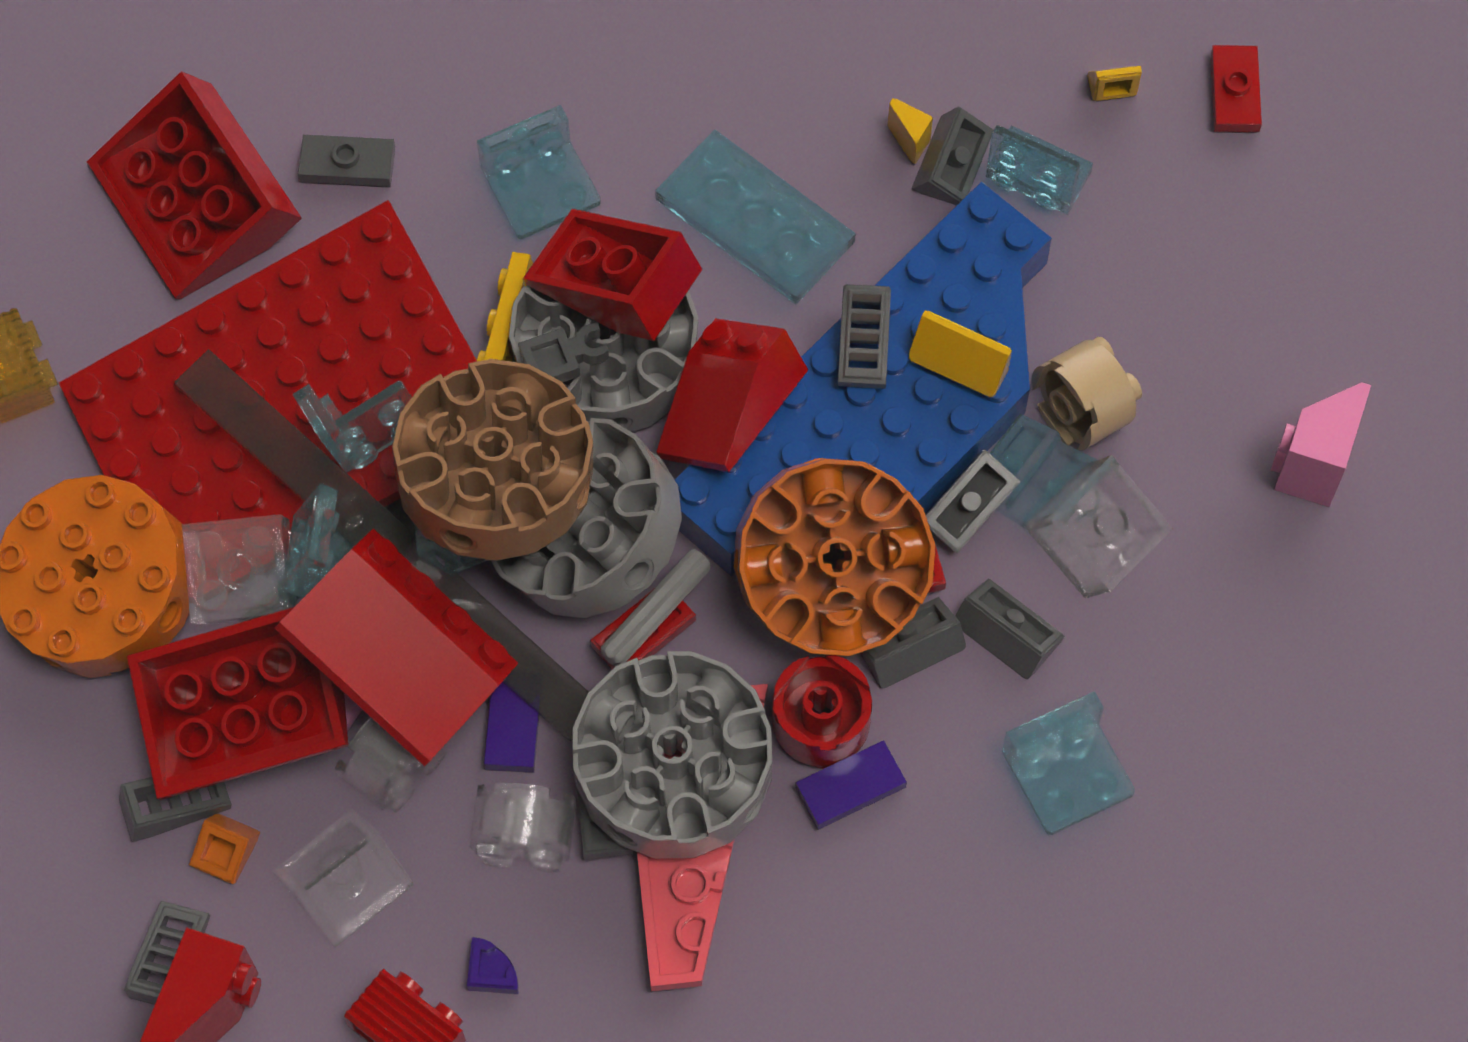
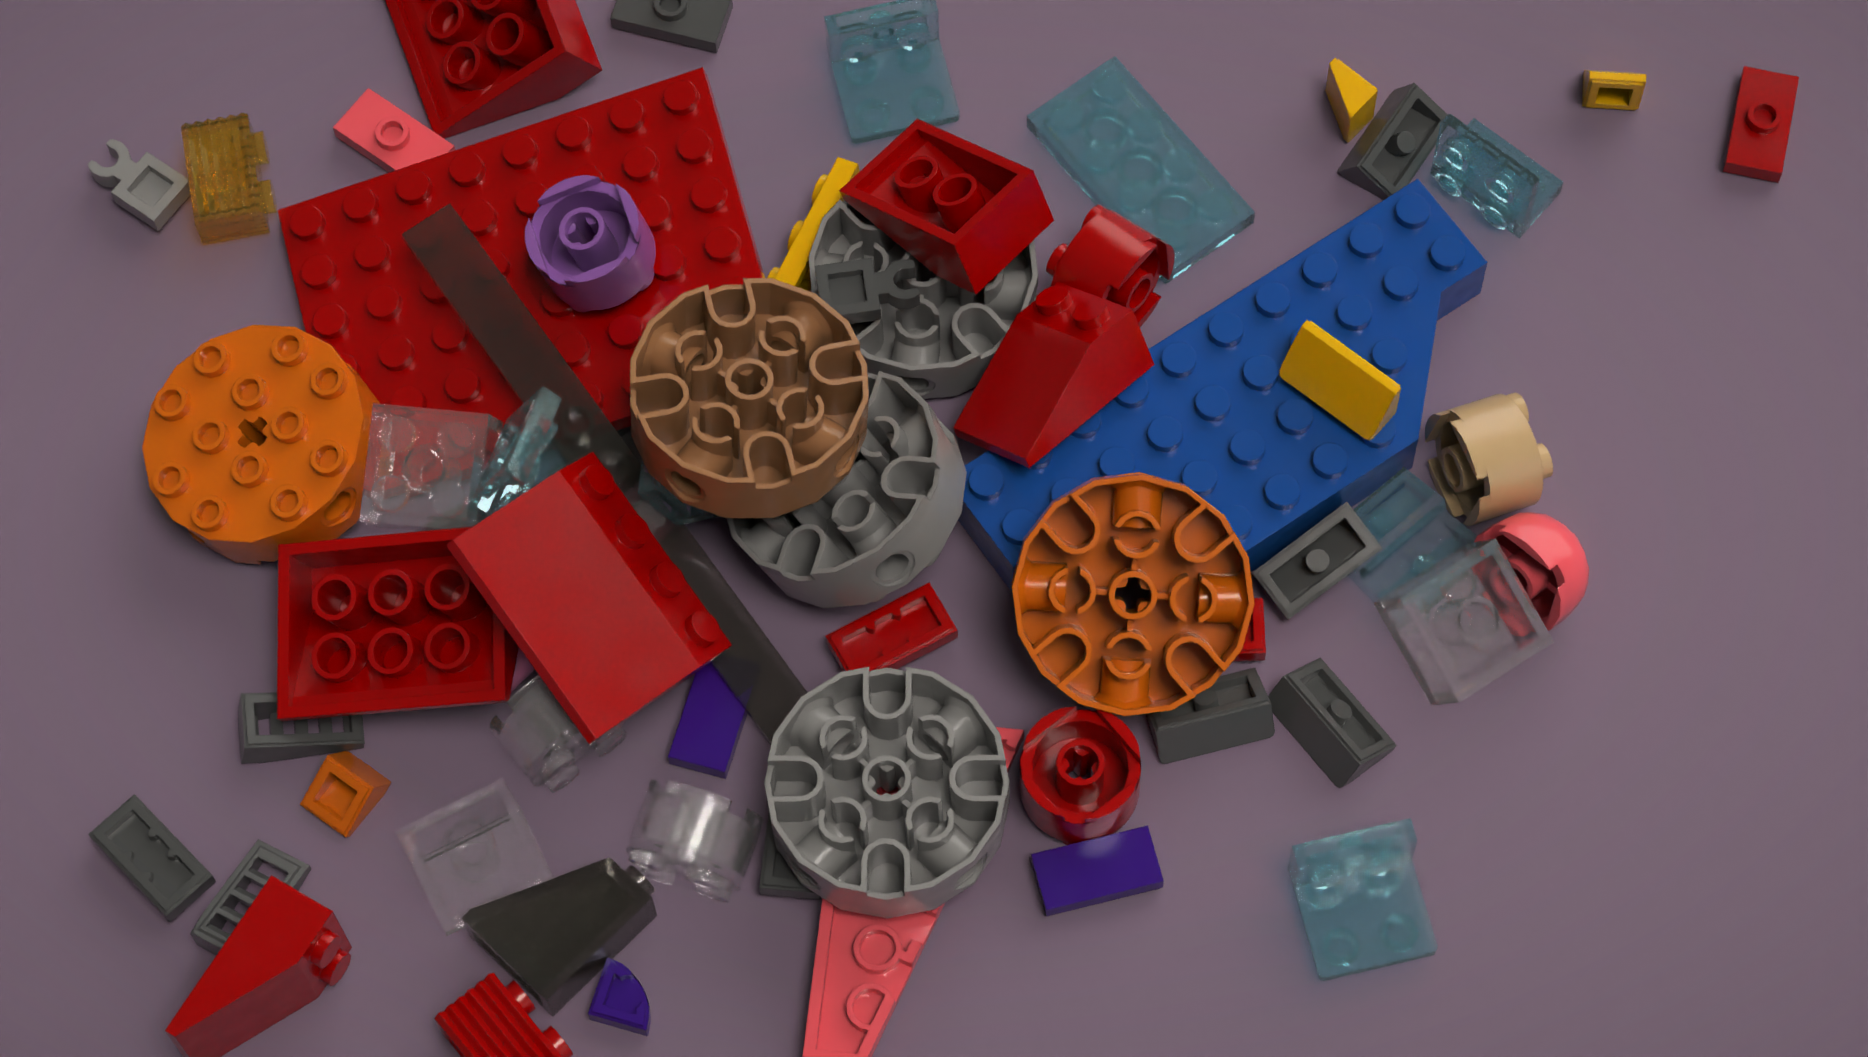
camera: 15 degrees right, 0 degrees up
(76, 934) = (152, 858): none -> dark grey plate
(136, 303) = (388, 134): none -> coral plate
(333, 354) = (591, 243): none -> medium lavender brick
(360, 433) = (596, 337): clear light blue bracket -> none
(431, 921) = (564, 928): none -> clear smoke slope
(655, 608) = (910, 612): light grey axle -> none
(754, 292) = (1114, 261): none -> red brick
(864, 306) = (1236, 301): dark grey slope -> none
(1152, 464) = (1545, 561): none -> coral cylinder
(1319, 446) = (1757, 576): bright pink slope -> none

